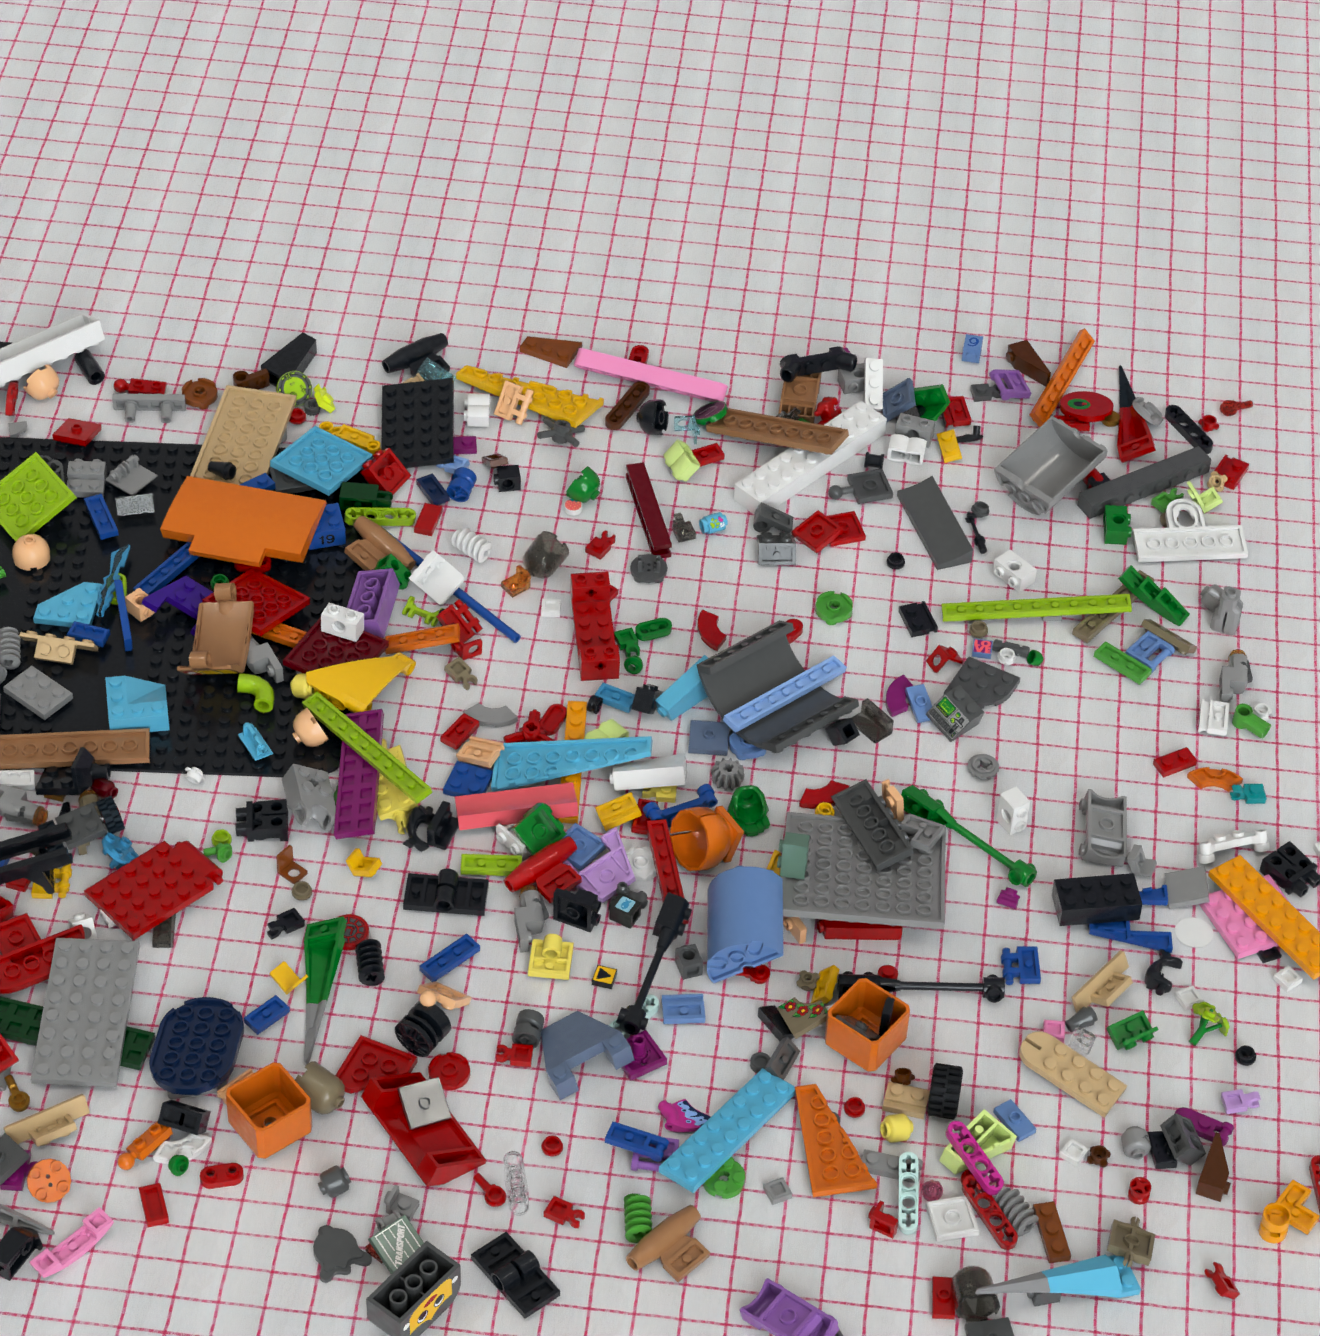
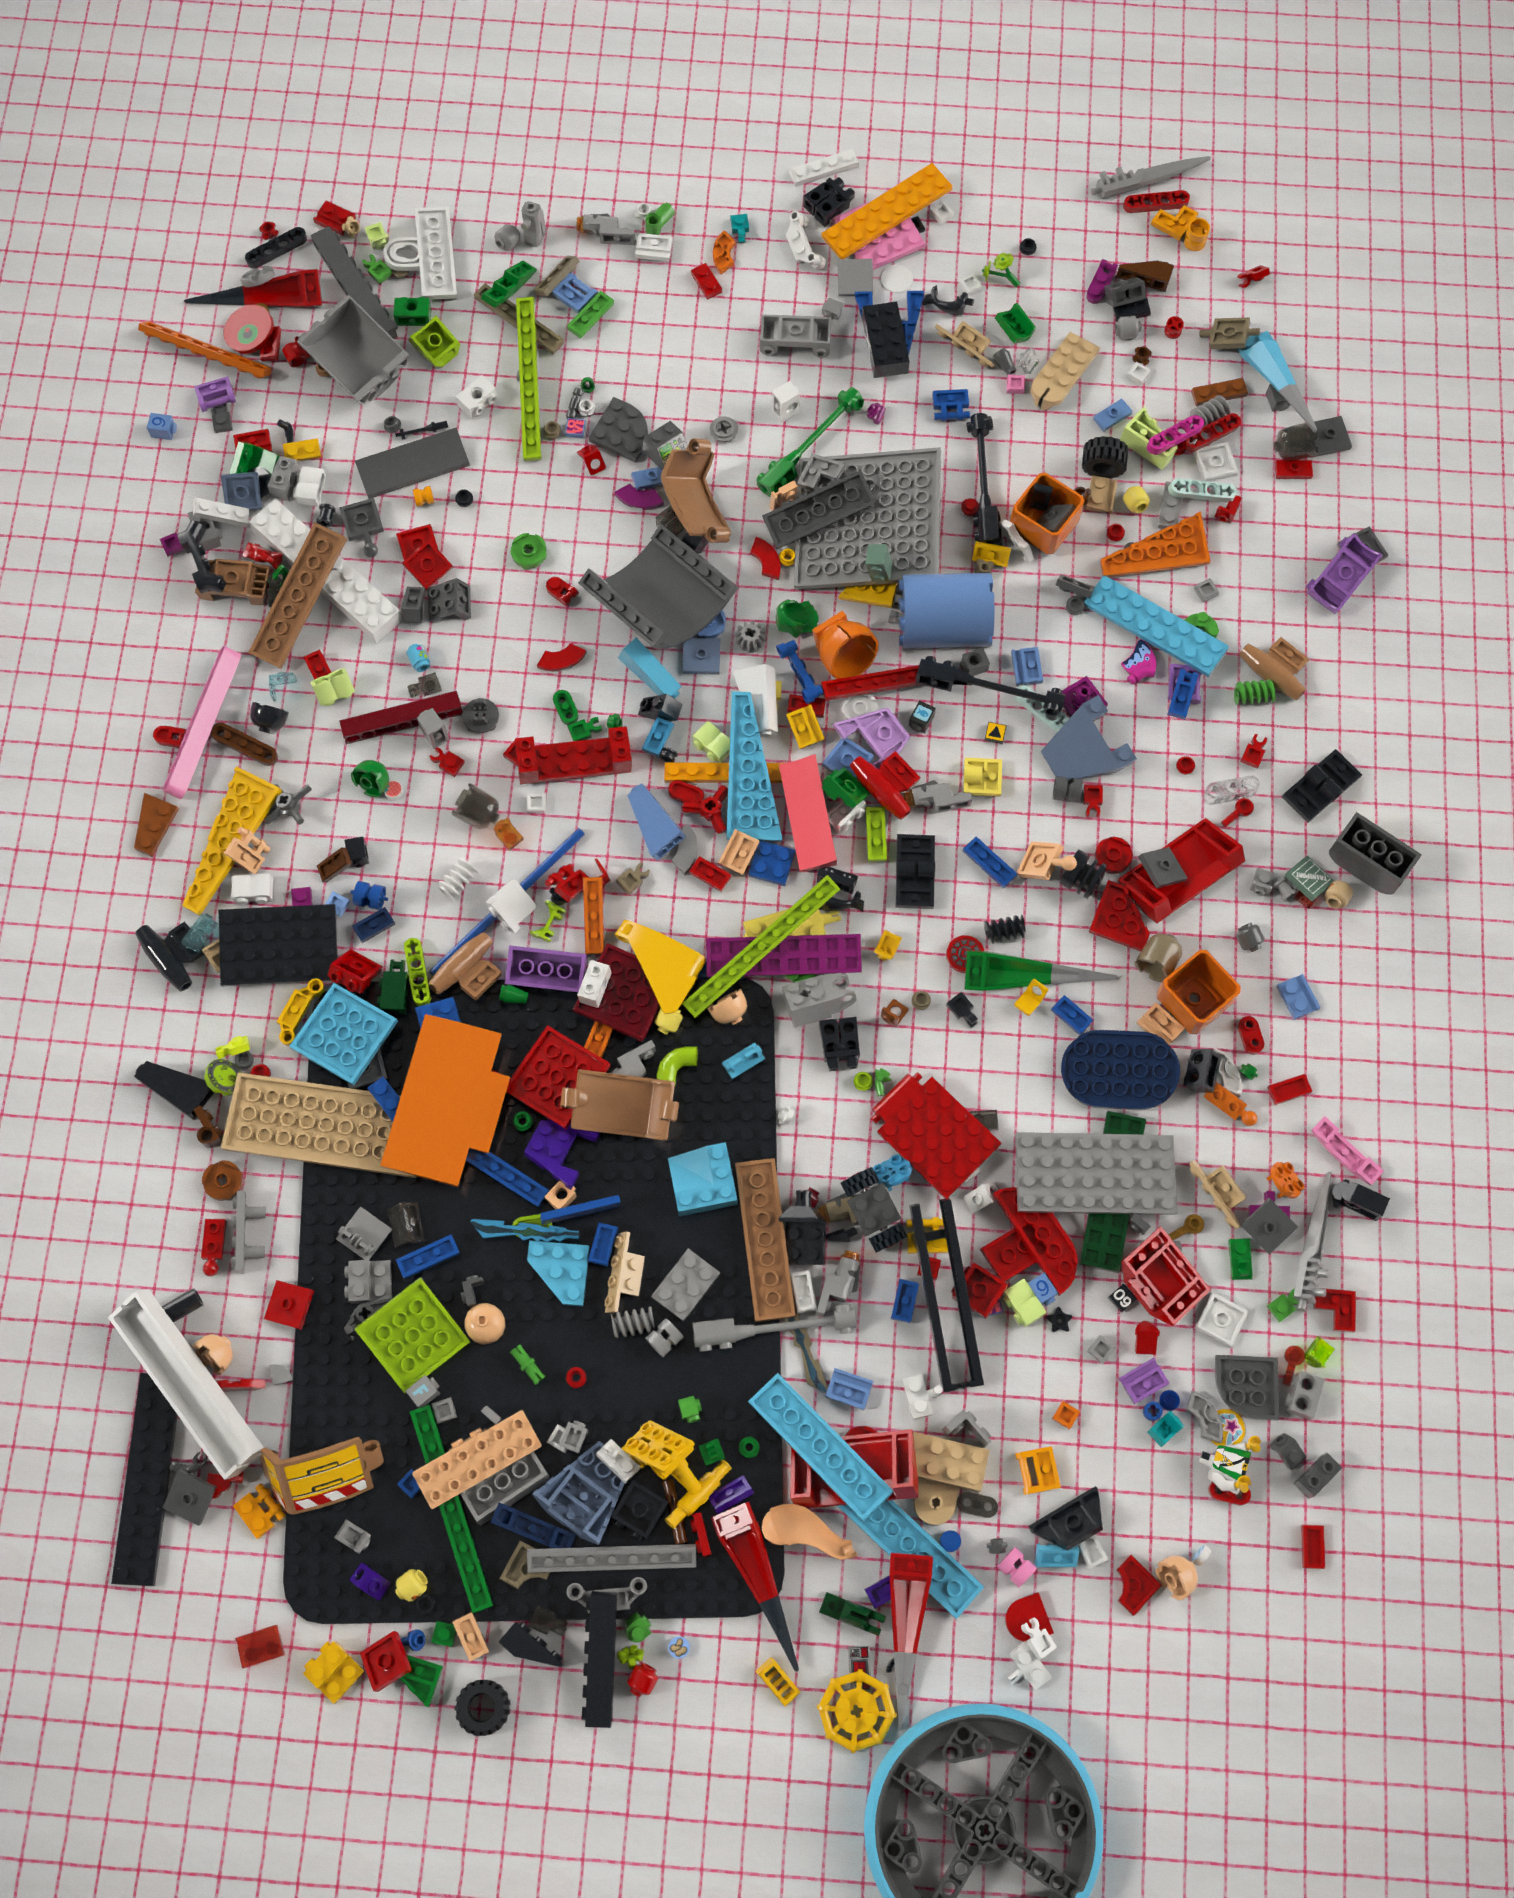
camera: 90 degrees left, 25 degrees up
(26, 1050) = (1138, 1225): none -> dark grey plate
(61, 542) = (468, 1295): none -> dark grey bracket
(222, 469) = (363, 1133): black cone -> none
(260, 1225) = (1298, 997): none -> medium blue plate
(336, 1251) = (1317, 931): dark grey tile -> none
(346, 577) = (511, 994): none -> green cone
(375, 1271) = (1338, 894): none -> tan head
(400, 570) = (499, 951): green leg -> none
(428, 519) = (414, 927): red tile -> none
(520, 687) = (654, 822): none -> medium blue slope
(577, 909) = (931, 750): black plate -> none
(631, 526) = (433, 728): none -> light grey brick
(639, 896) = (904, 710): dark grey piece -> none
(710, 412) = (259, 663): tile -> none
(774, 1021) = (1032, 592): black slope -> none
(784, 694) = (653, 587): light blue plate -> none
(802, 1016) = (1033, 568): dark tan tile -> none
(889, 726) = (689, 493): none -> medium nougat panel
(896, 529) = (423, 496): none -> light orange wheel
(917, 619) = (539, 480): black plate -> none
(932, 1190) = (1193, 473): clear pink plate -> none
(1027, 361) = (182, 377): reddish brown slope -> none
(1077, 539) = (435, 343): none -> lime slope
(1230, 407) = (247, 211): clear red plate -> none
(1237, 1101) = (1076, 254): lavender plate -> none

